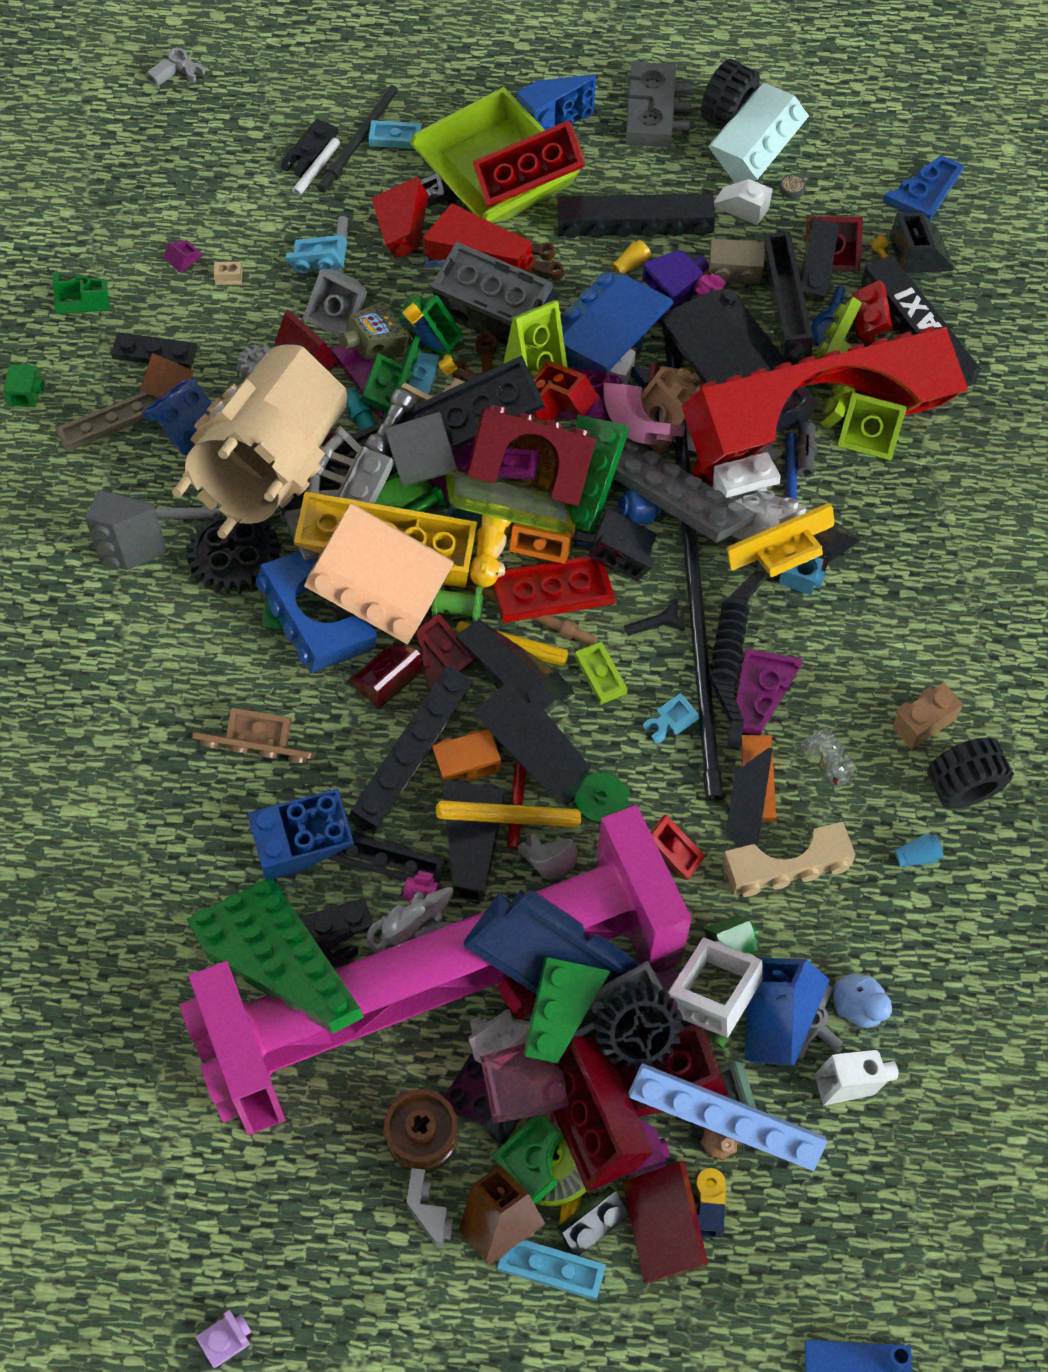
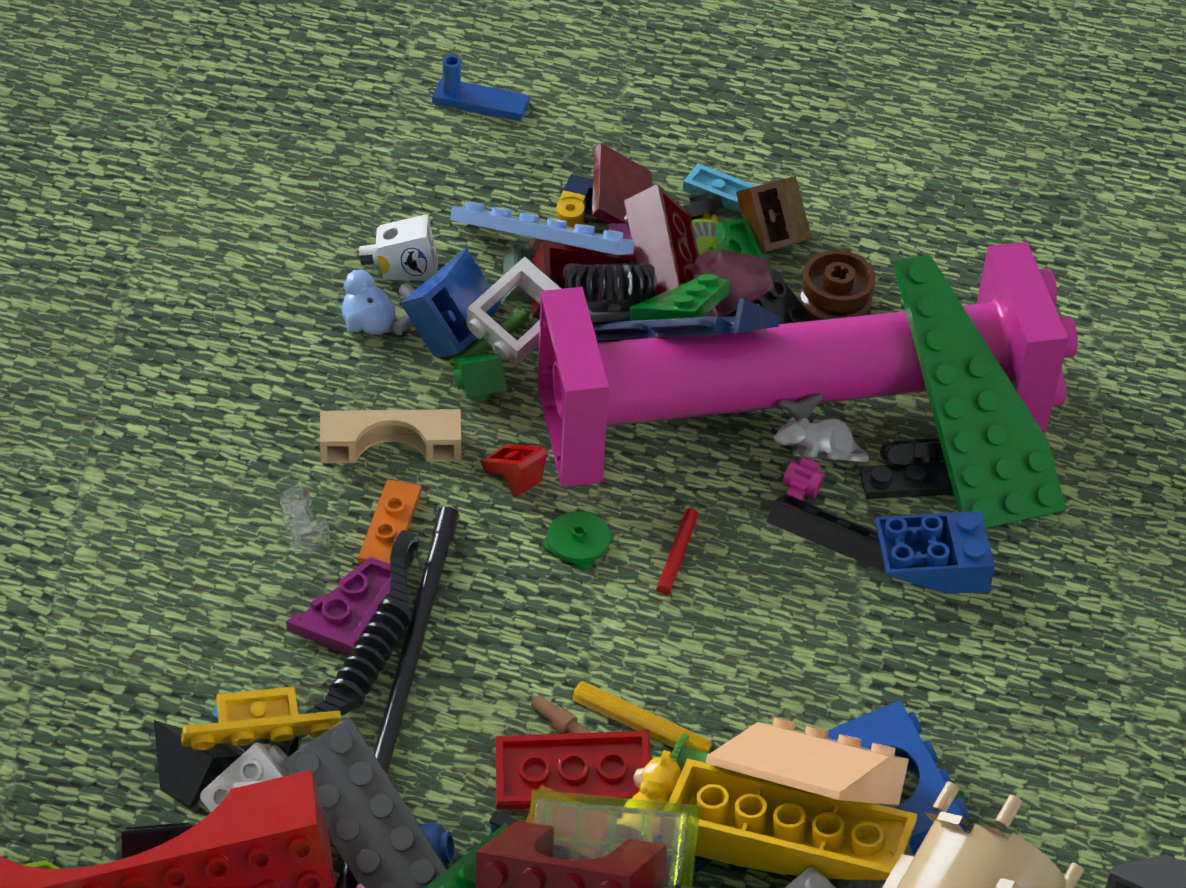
camera: 170 degrees left, 15 degrees down
(224, 1338) = (1034, 205): lavender bracket -> none
(256, 731) = (978, 665): medium nougat bracket -> none
(387, 674) = (810, 697): dark red slope -> none
(410, 750) = (791, 608): black brick -> none
(430, 1218) = (837, 234): light grey slope -> none
(439, 649) = (729, 711): dark red wing -> none
(467, 756) = (727, 596): orange brick -> none
(471, 842) = (734, 525): black slope -> none
(508, 662) = (642, 663): black wedge -> none
(508, 813) = (694, 511): yellow axle -> none
(534, 742) = (656, 571): black slope -> none
(550, 859) = (653, 483): light grey piece -> none
(601, 673) = (539, 661): lime plate -> none
(623, 545) = (470, 792): black bracket -> none
(667, 617) = (433, 714): black piece -> none
(674, 716) = (466, 598): medium azure plate -> none
(748, 800) = (412, 494): black sticker -> none
(842, 477) = (138, 839): none -> black slope
(920, 851) = (243, 420): dark azure cone -> none
(927, 715) = (168, 533): medium nougat brick -> none
(970, 772) = (157, 450): black tyre -> none

